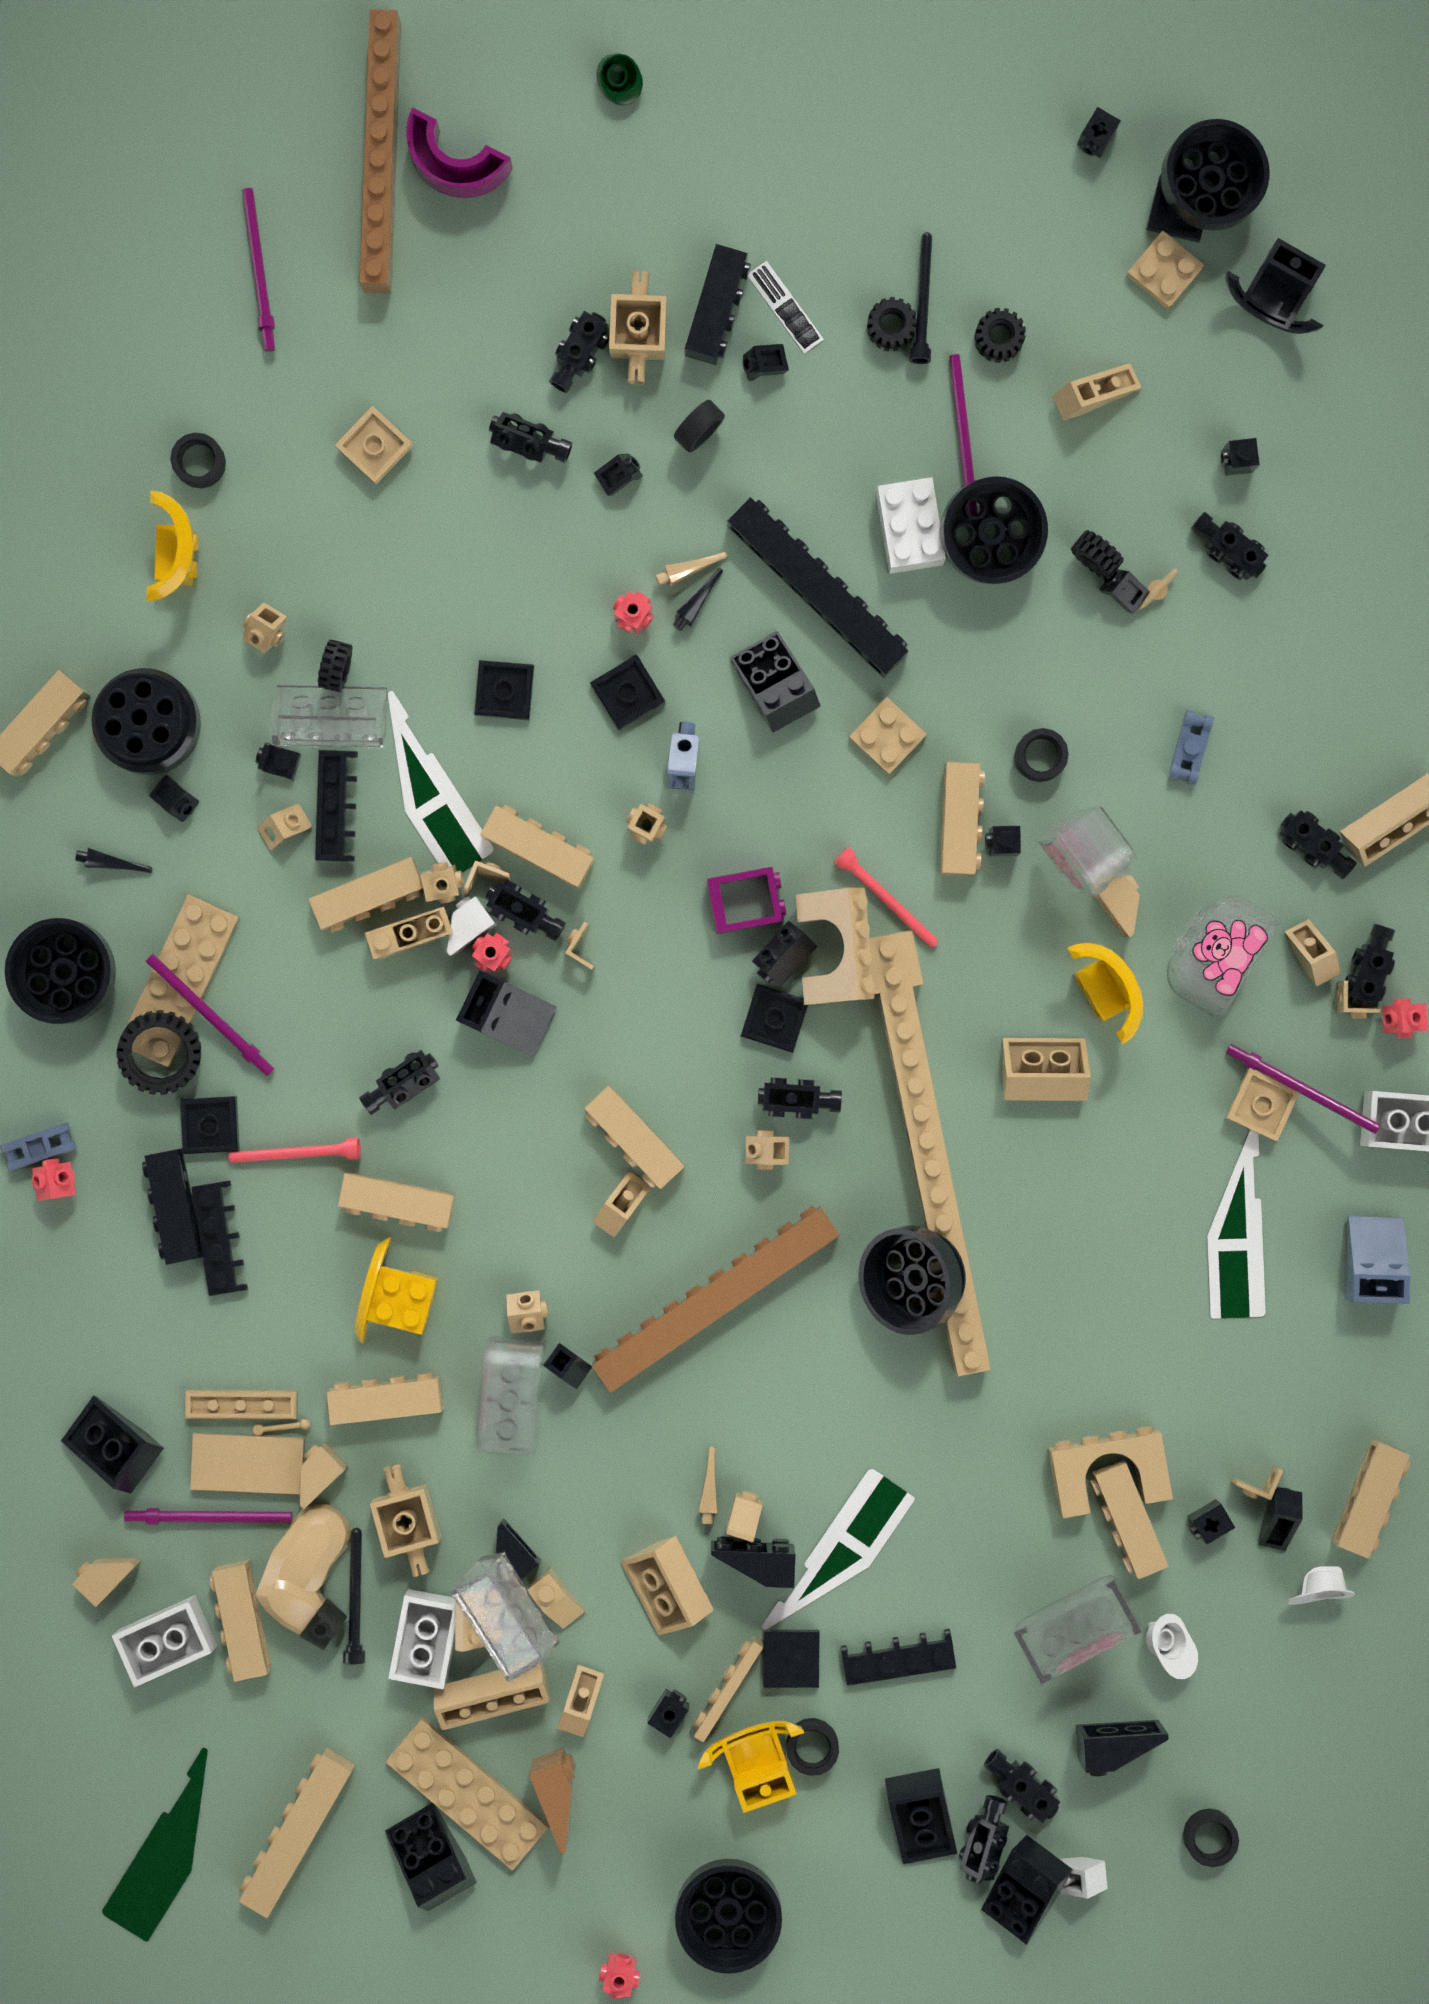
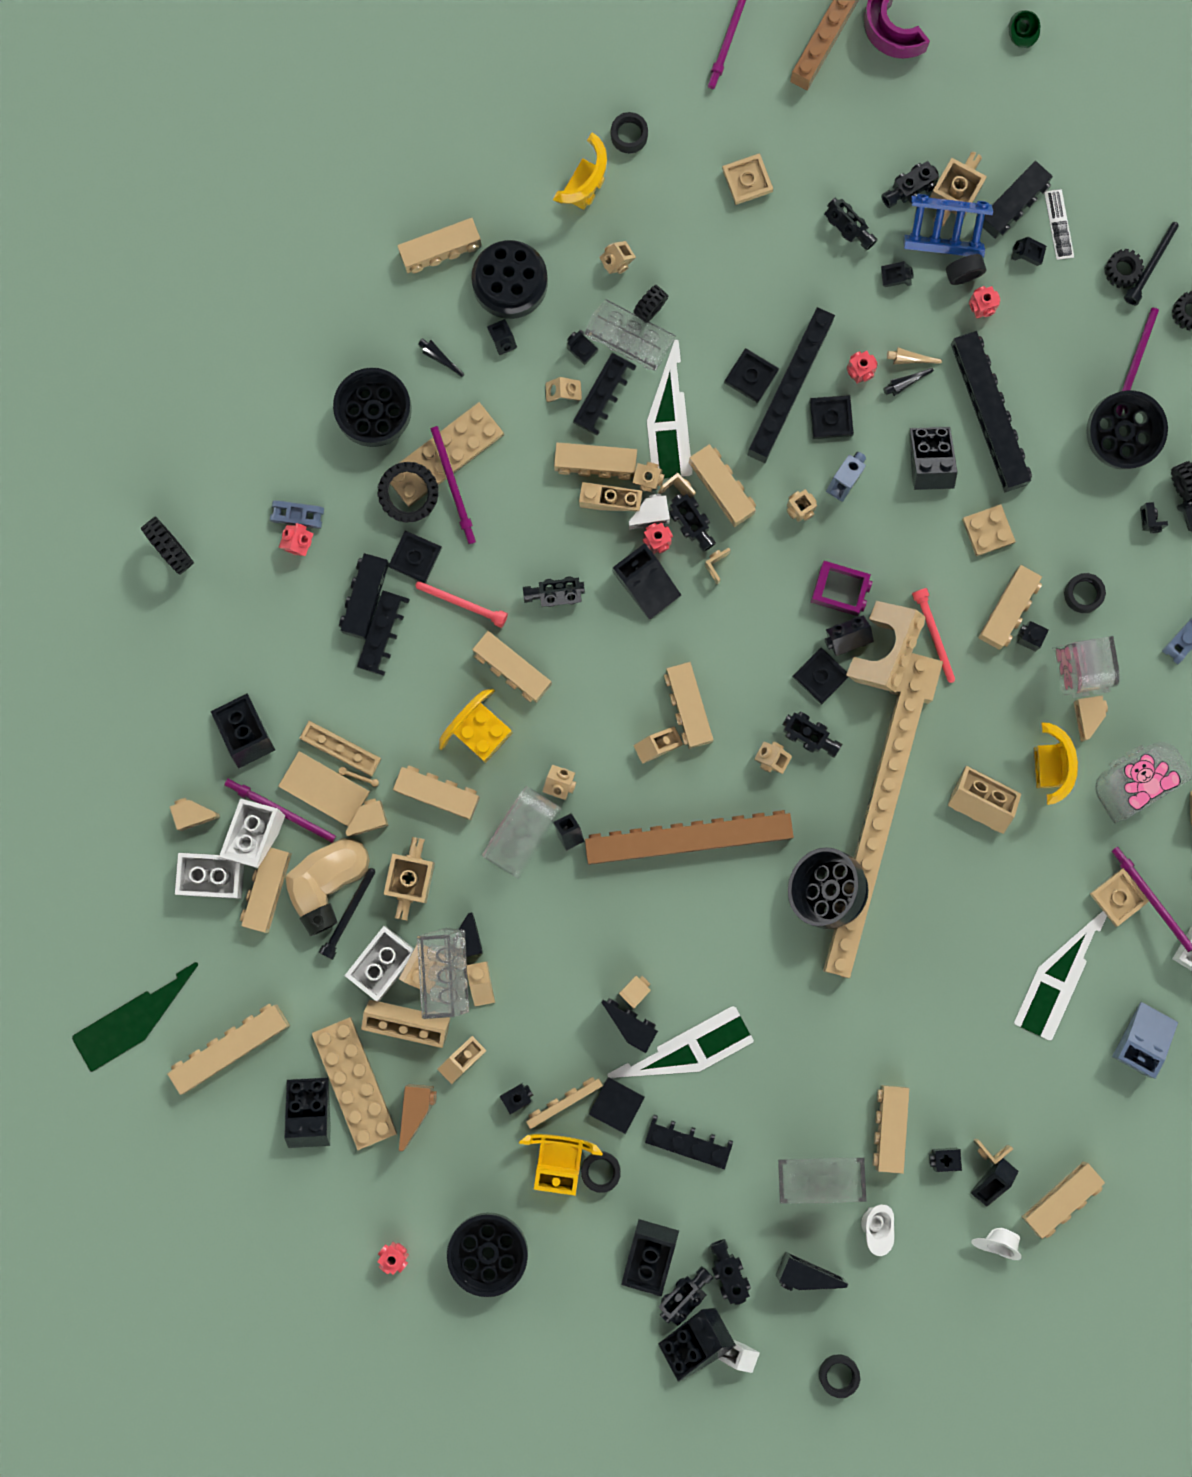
camera: 30 degrees right, 5 degrees down
(188, 1567) = (251, 833): none -> white slope
(558, 679) = (791, 385): none -> black brick
(667, 1586) = (559, 1012): tan slope -> none
(669, 401) = (955, 244): none -> blue fence
(708, 1501) = (615, 971): tan piece -> none
(742, 463) = (980, 306): none -> coral brick
(910, 525) = (1072, 401): white brick -> none
(1072, 620) = (1149, 515): none -> black bracket
(1072, 1461) = (924, 1087): tan arch -> none

